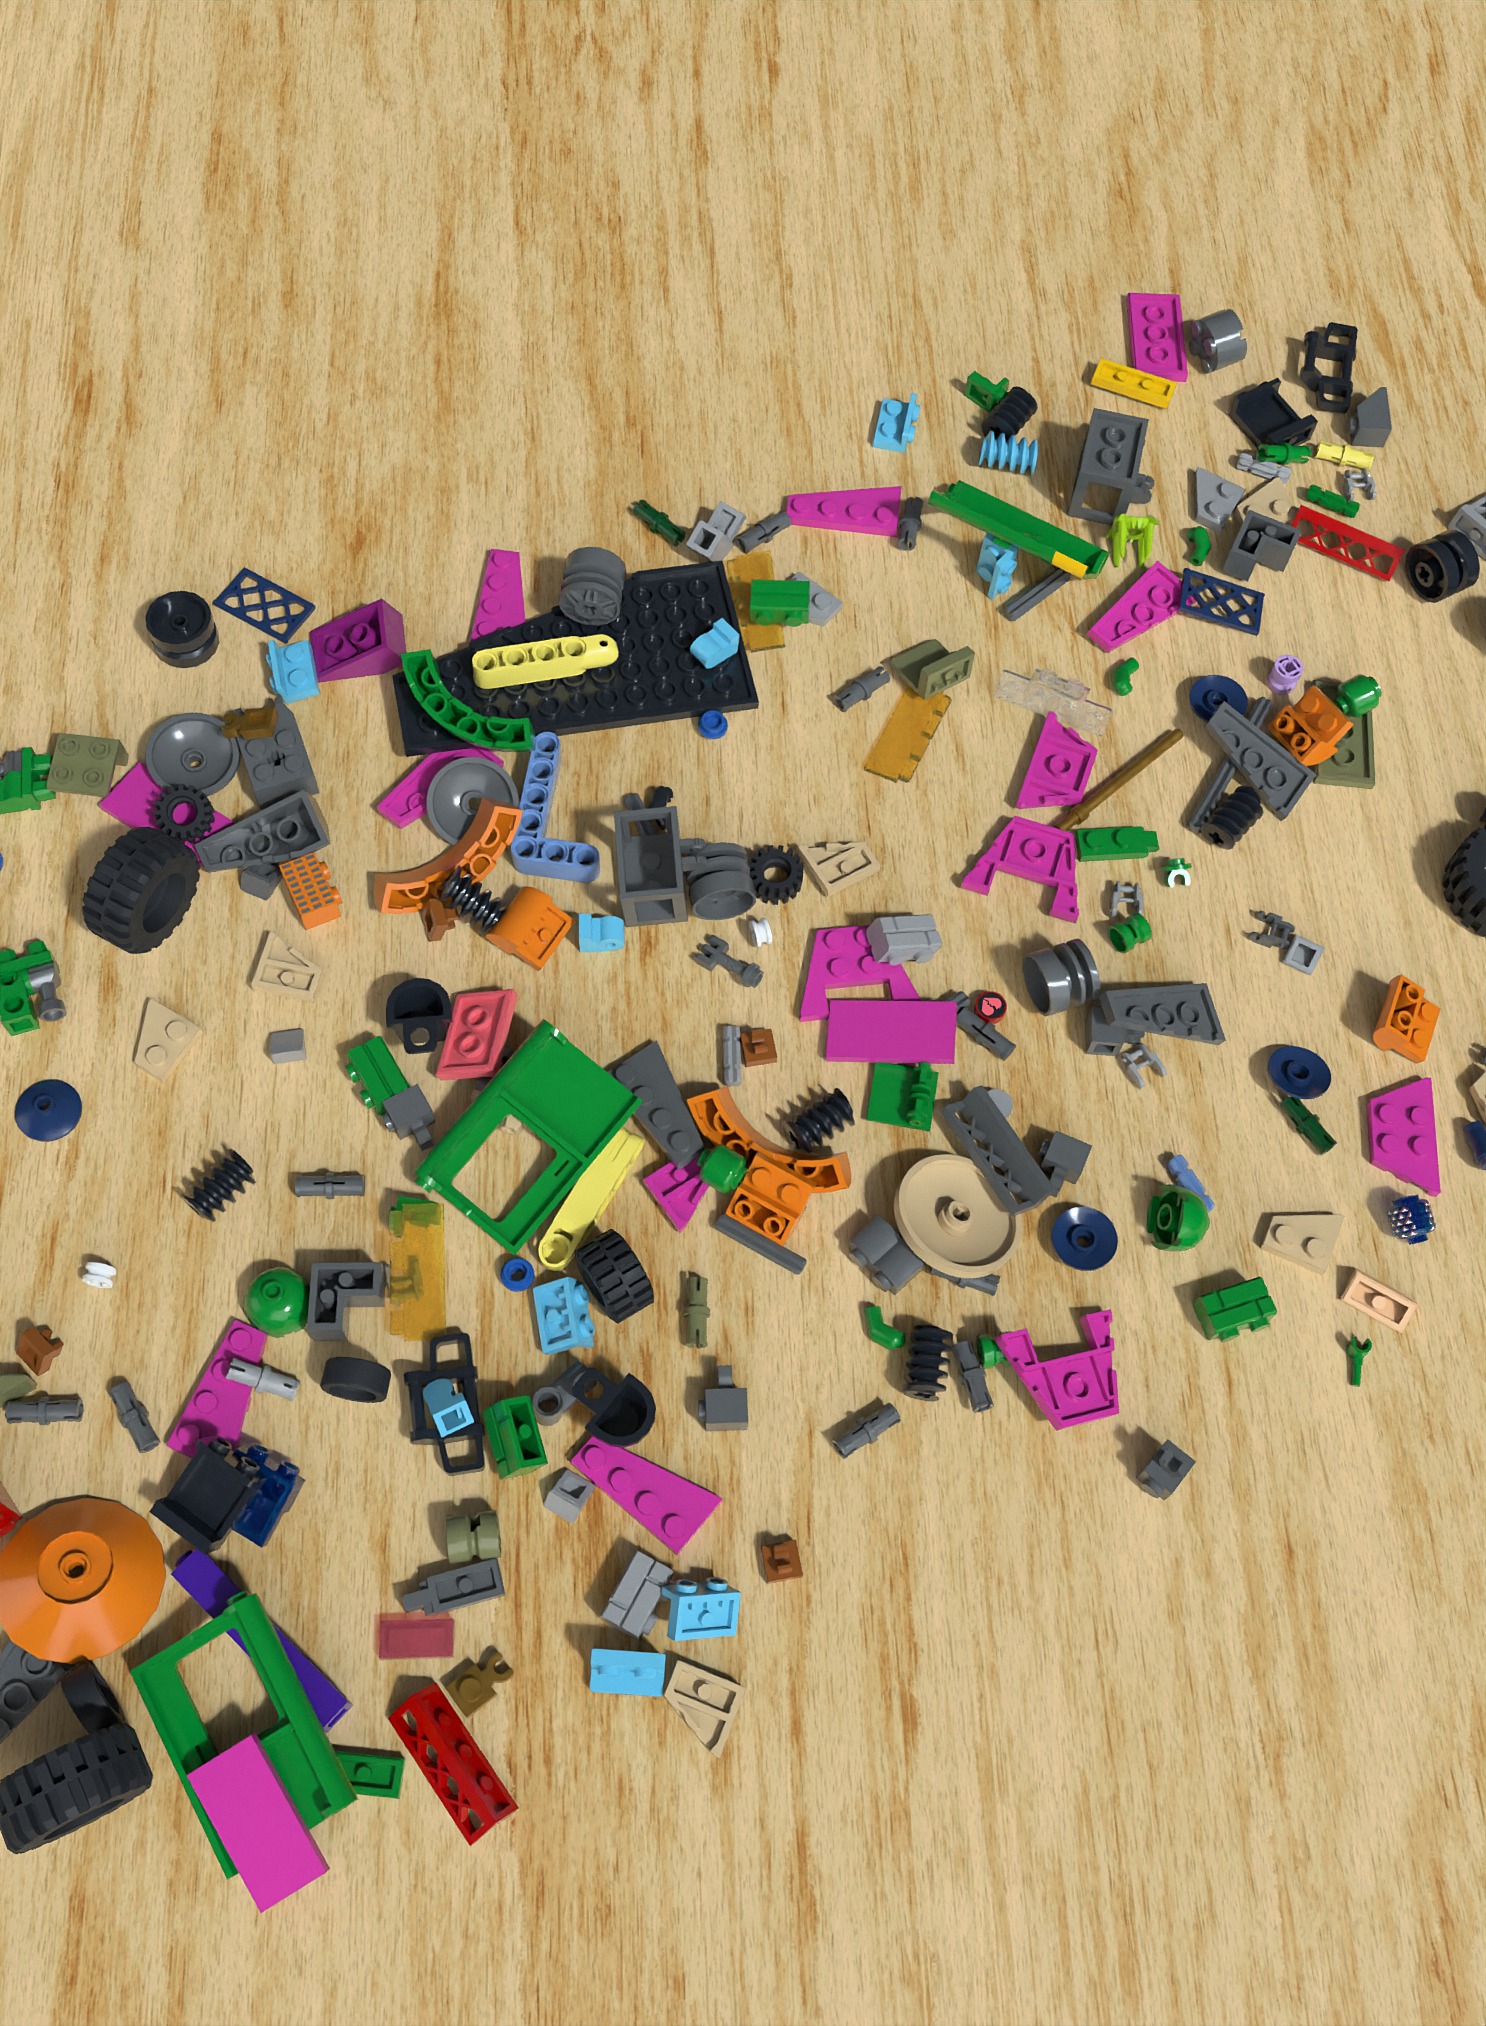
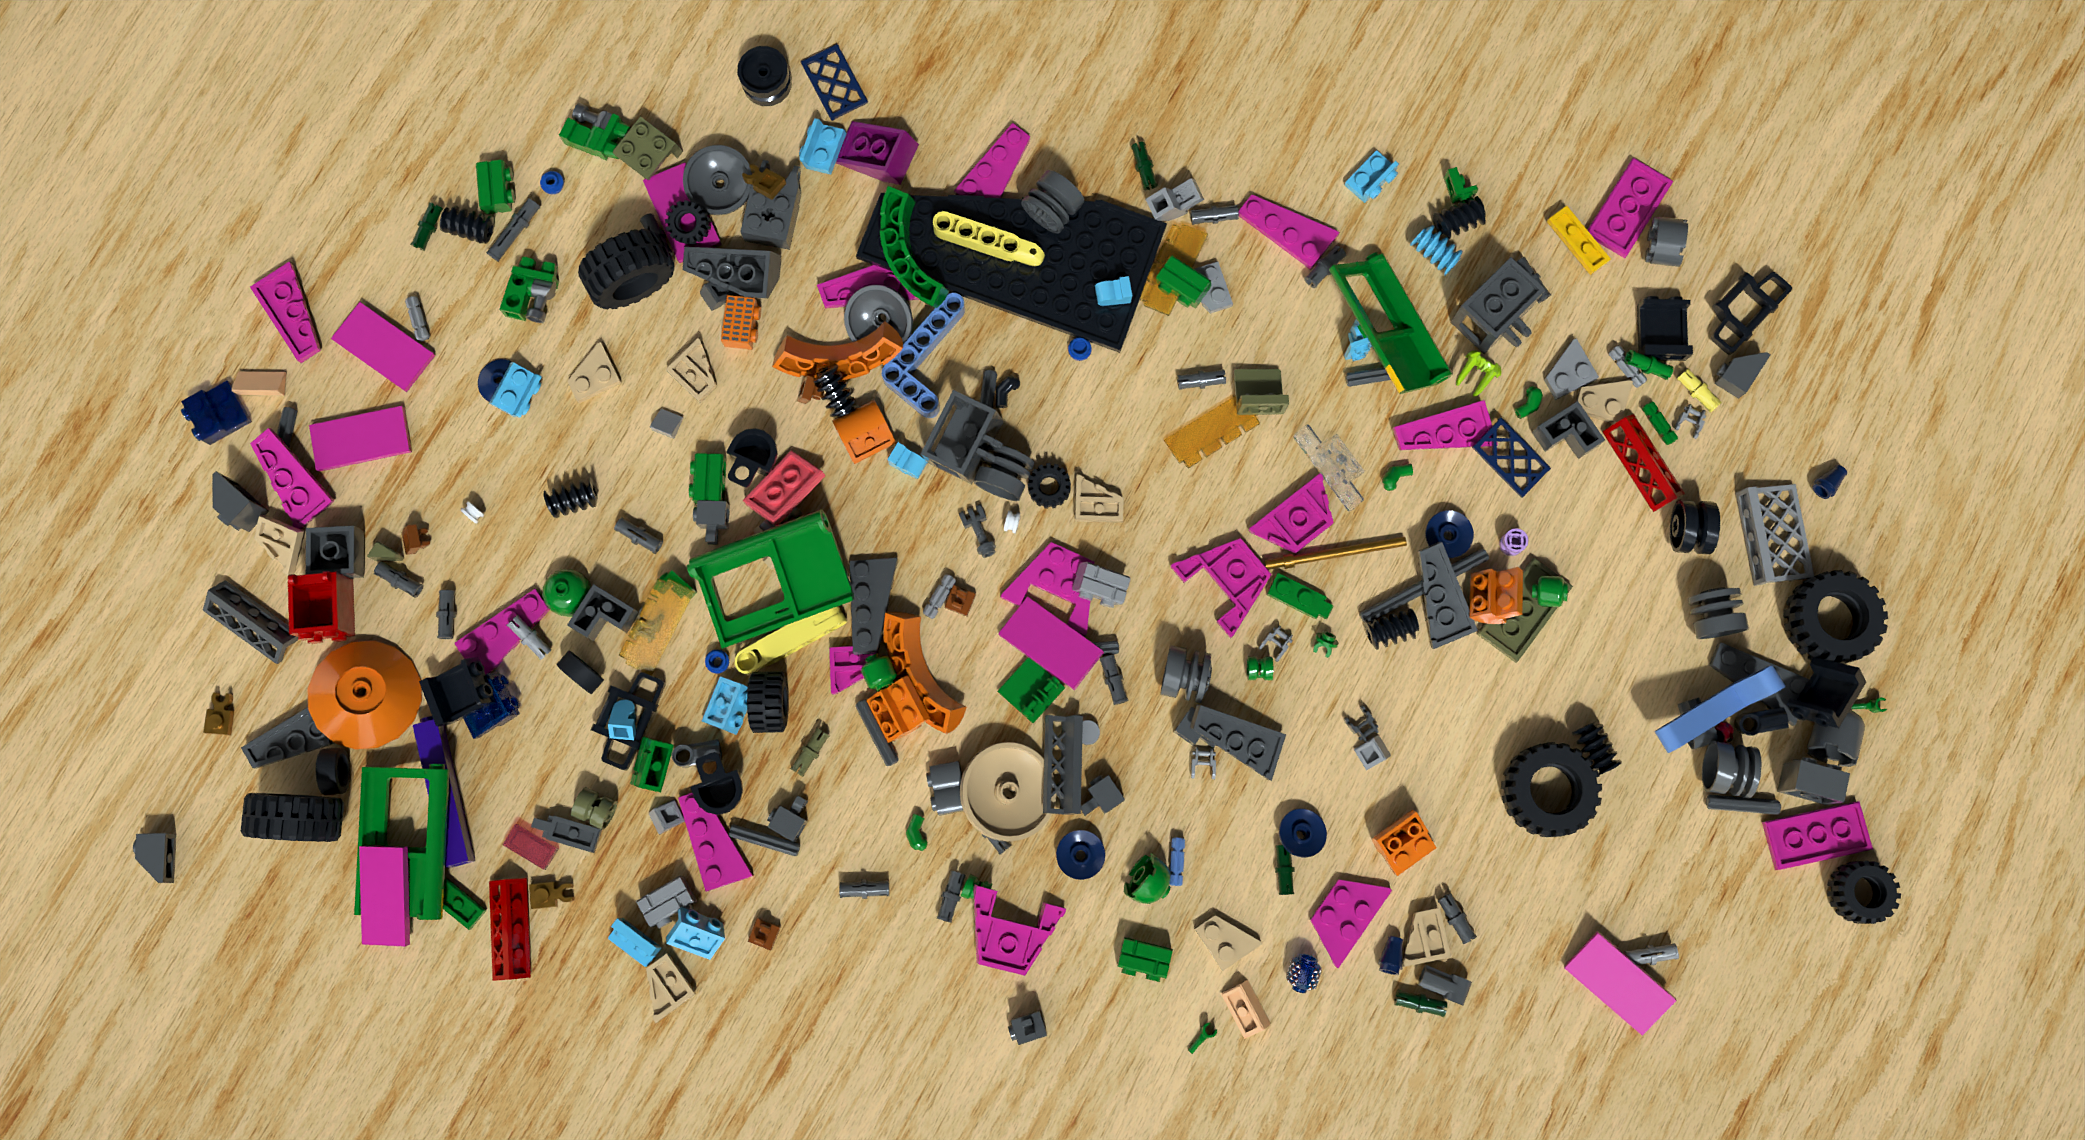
camera: 40 degrees right, 15 degrees up
(75, 1105) = (516, 390): none -> medium azure bracket
(709, 1448) = (764, 840): none -> dark grey axle
(819, 1121) = (963, 677): black piece -> none
(925, 1362) = (928, 871): black piece -> none
(990, 1007) = (1130, 663): tile -> none

